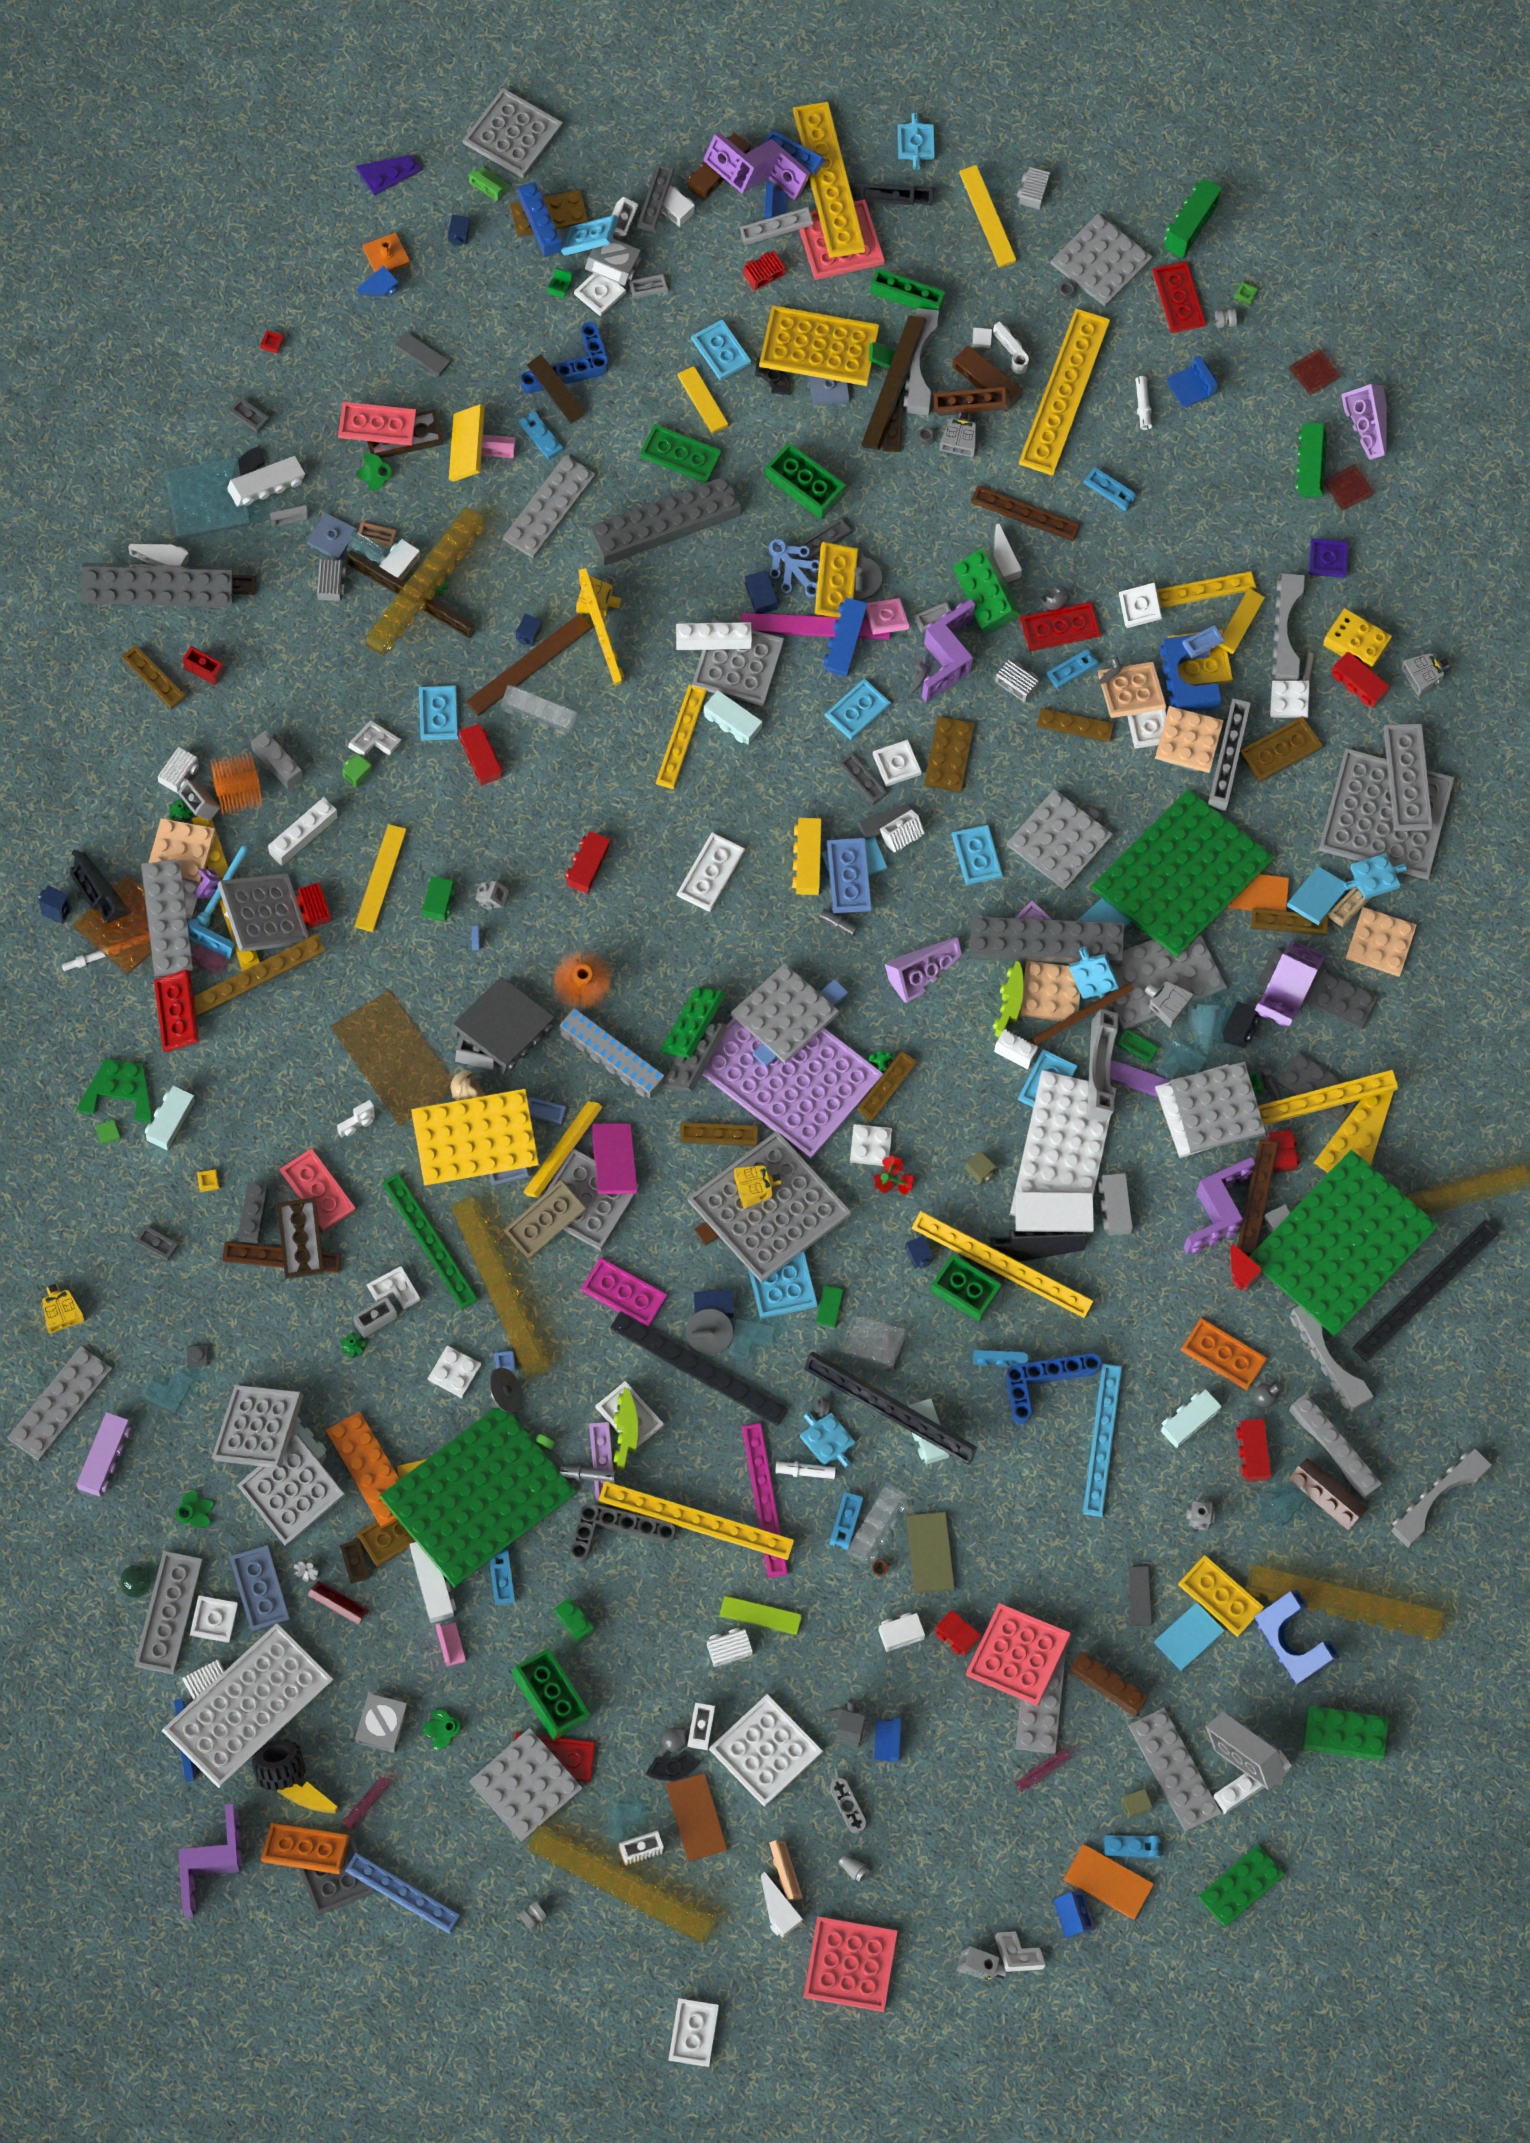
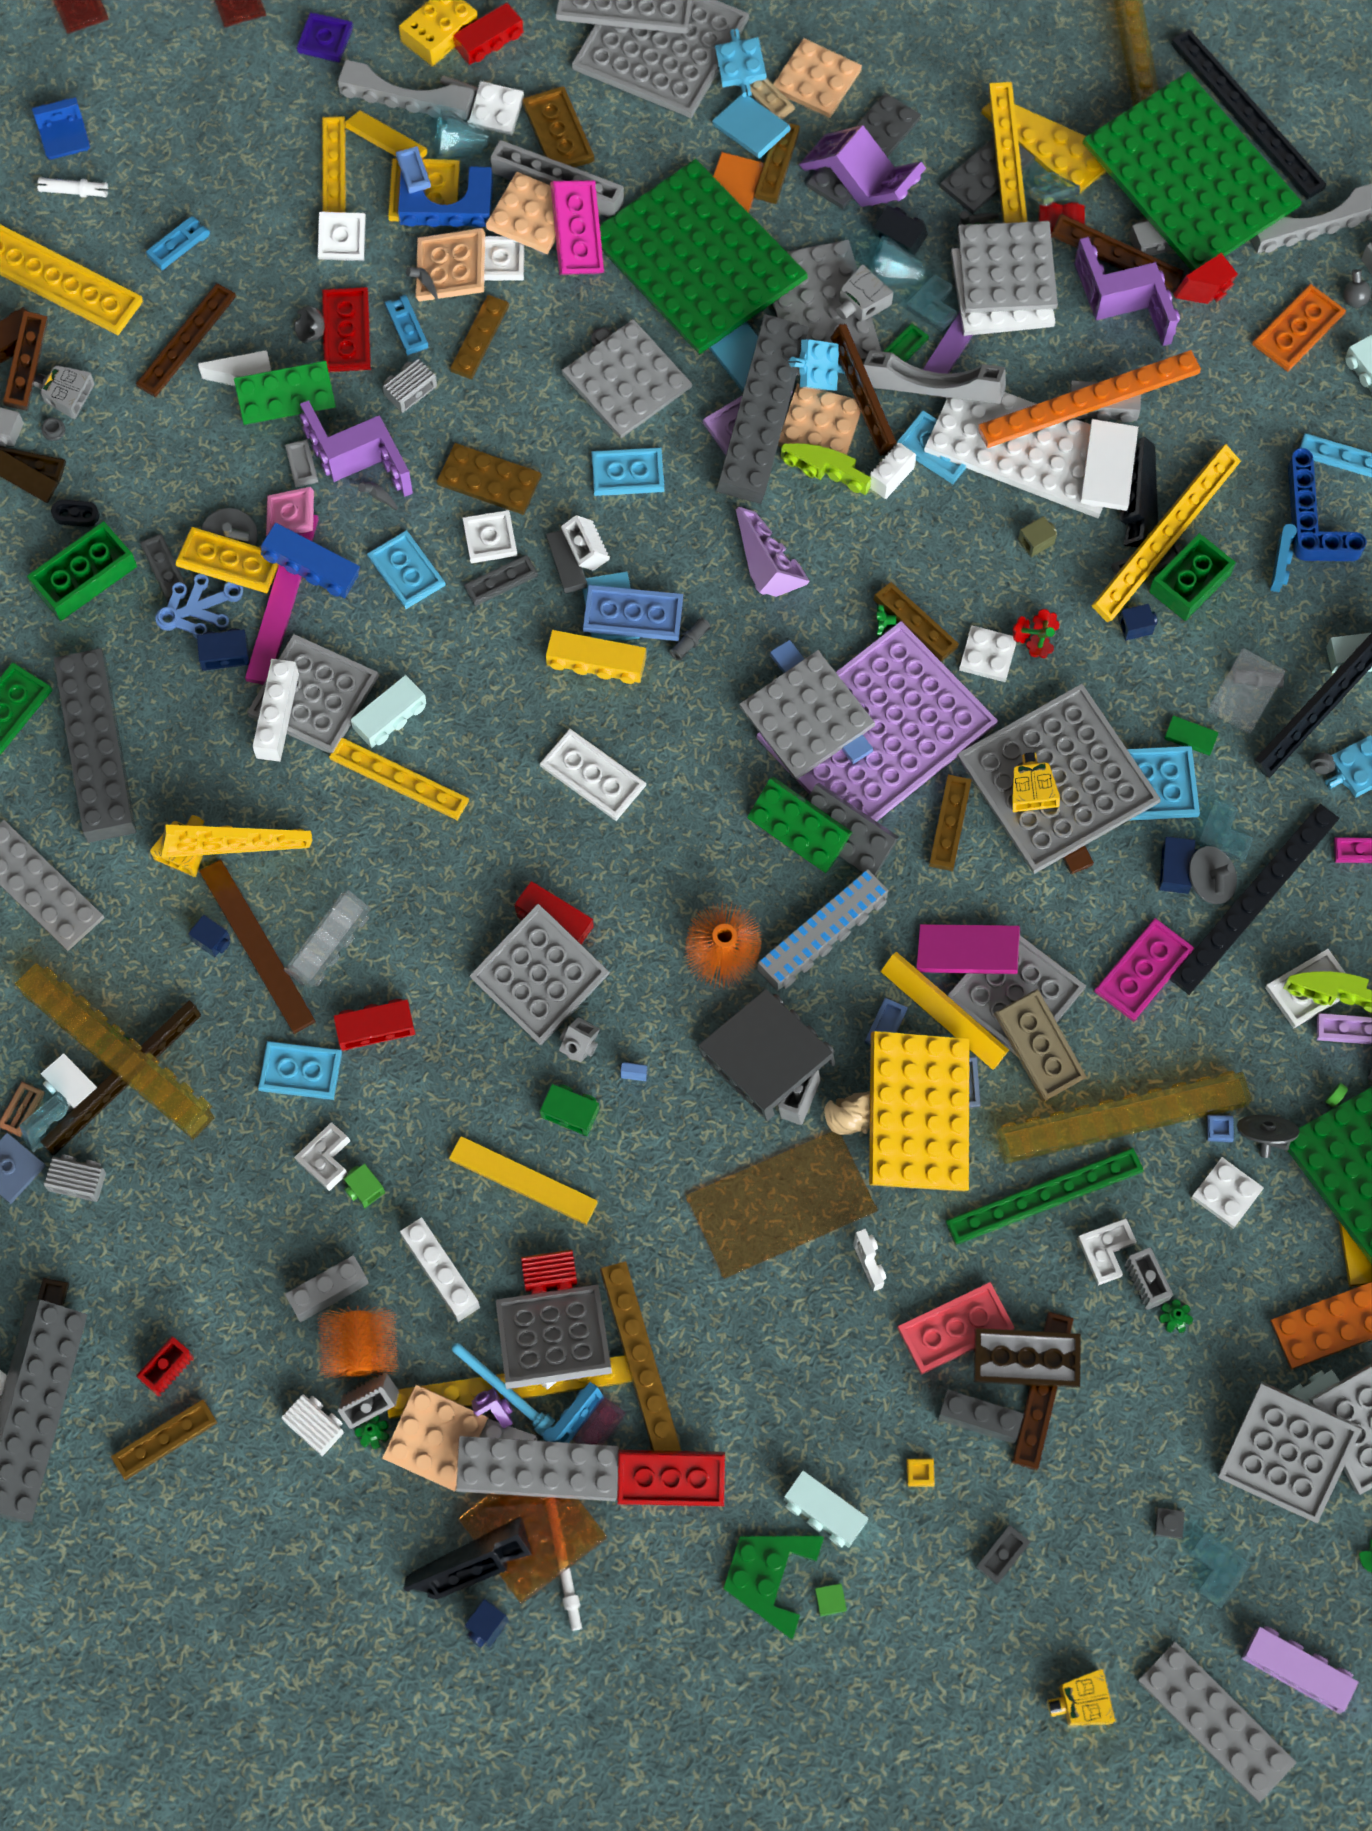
camera: 75 degrees left, 0 degrees up
(537, 858) = (539, 974): none -> light grey plate
(856, 468) = (76, 513): none -> black plate
(1109, 1188) = (1089, 399): none -> orange plate
(1181, 774) = (577, 227): none -> dark pink tile
(1251, 673) = (458, 137): none -> clear light blue cone
(1307, 1141) = (1052, 188): none -> clear light blue plate
(1312, 460) = (196, 26): green brick -> none

